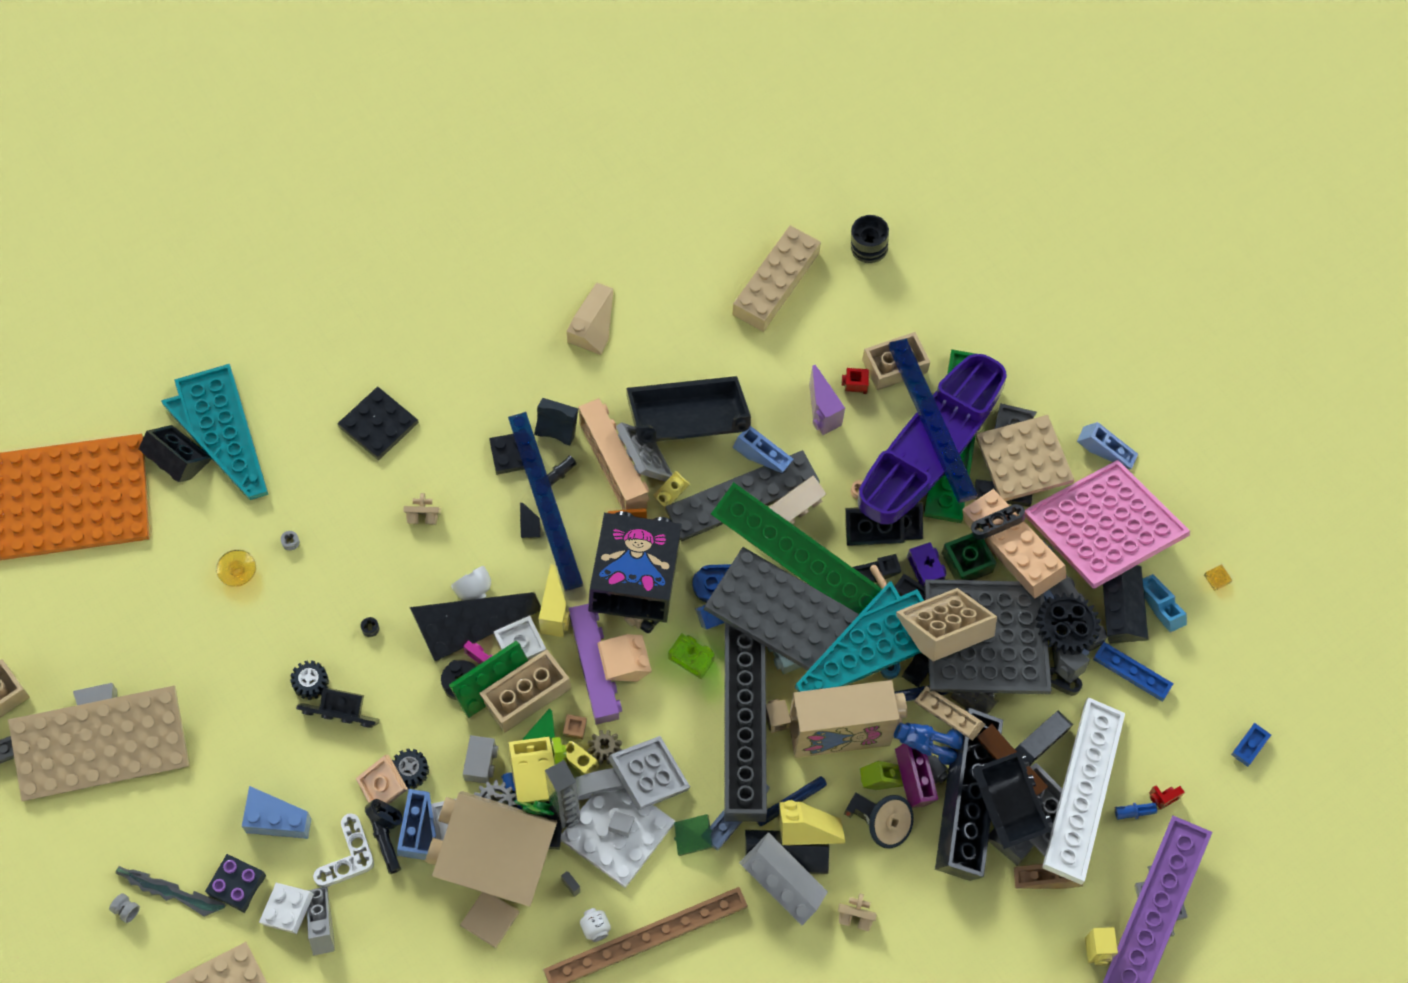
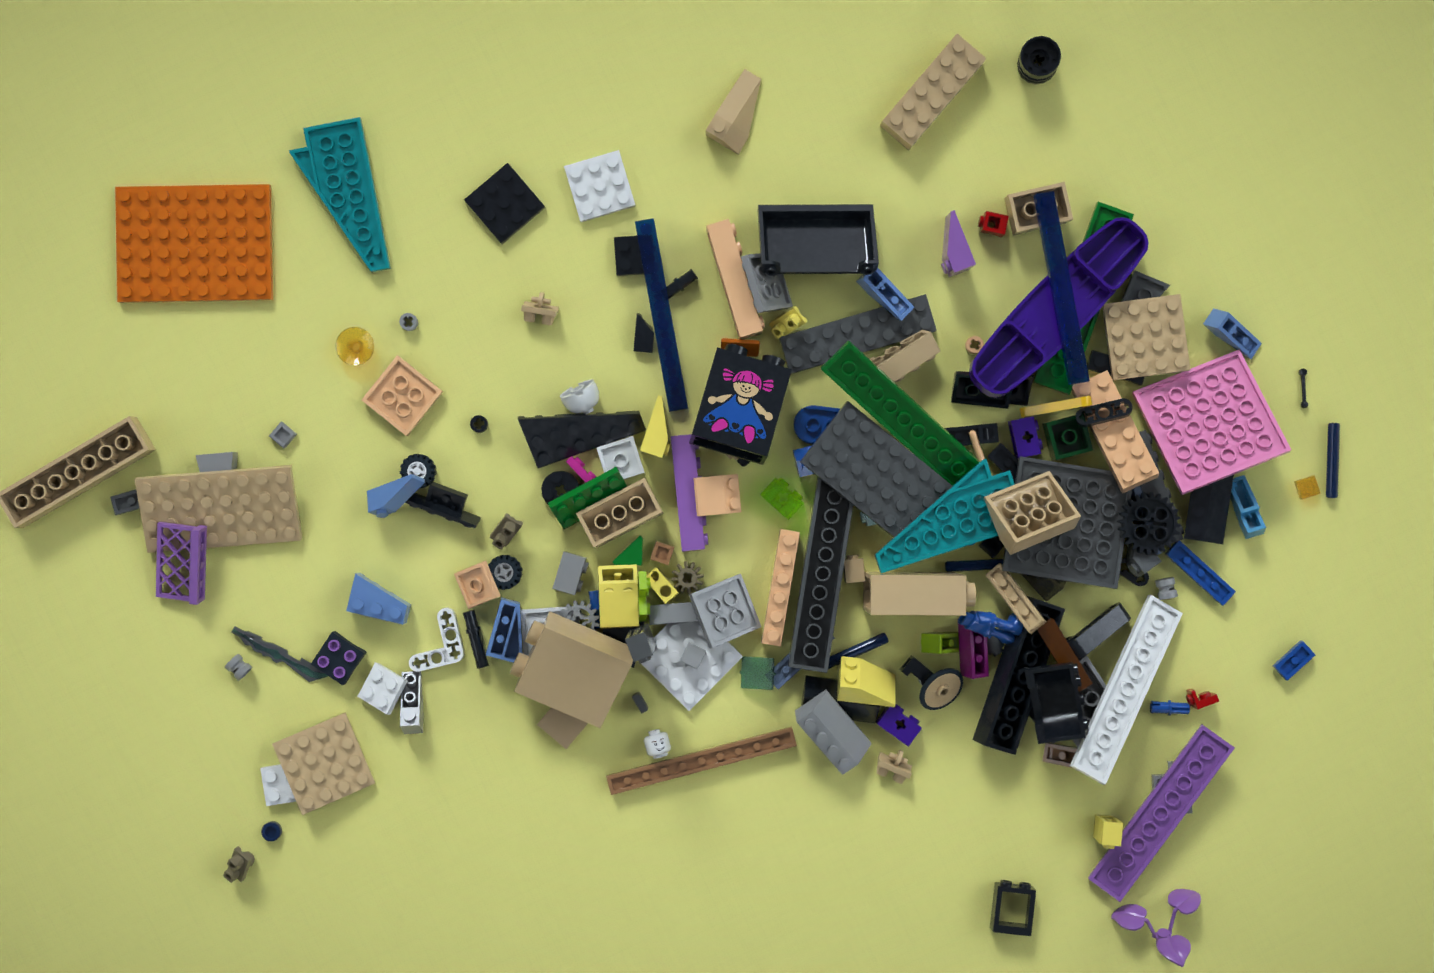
camera: 10 degrees right, 25 degrees up
(76, 806) = (197, 560): none -> medium lavender fence
(164, 664) = (283, 435): none -> light grey tile
(174, 452) = (300, 211): black slope -> none
(284, 702) = (391, 496): none -> medium blue slope
(288, 609) = (402, 395): none -> light nougat plate
(383, 814) = (475, 618): black beam -> none
(407, 723) = (505, 531): none -> dark tan hips
(470, 396) = (599, 186): none -> white plate
(538, 808) = (614, 638): green plate -> none
(556, 421) = (683, 231): black brick -> none
(703, 743) = (780, 587): none -> light nougat brick
(863, 872) = (906, 733): none -> dark purple brick
(951, 527) = (1056, 406): none -> yellow beam
(1102, 690) = (1166, 588): none -> light grey wheel
(1184, 475) = (1302, 372): none -> black hinge
(1236, 549) = (1332, 460): none -> dark blue axle

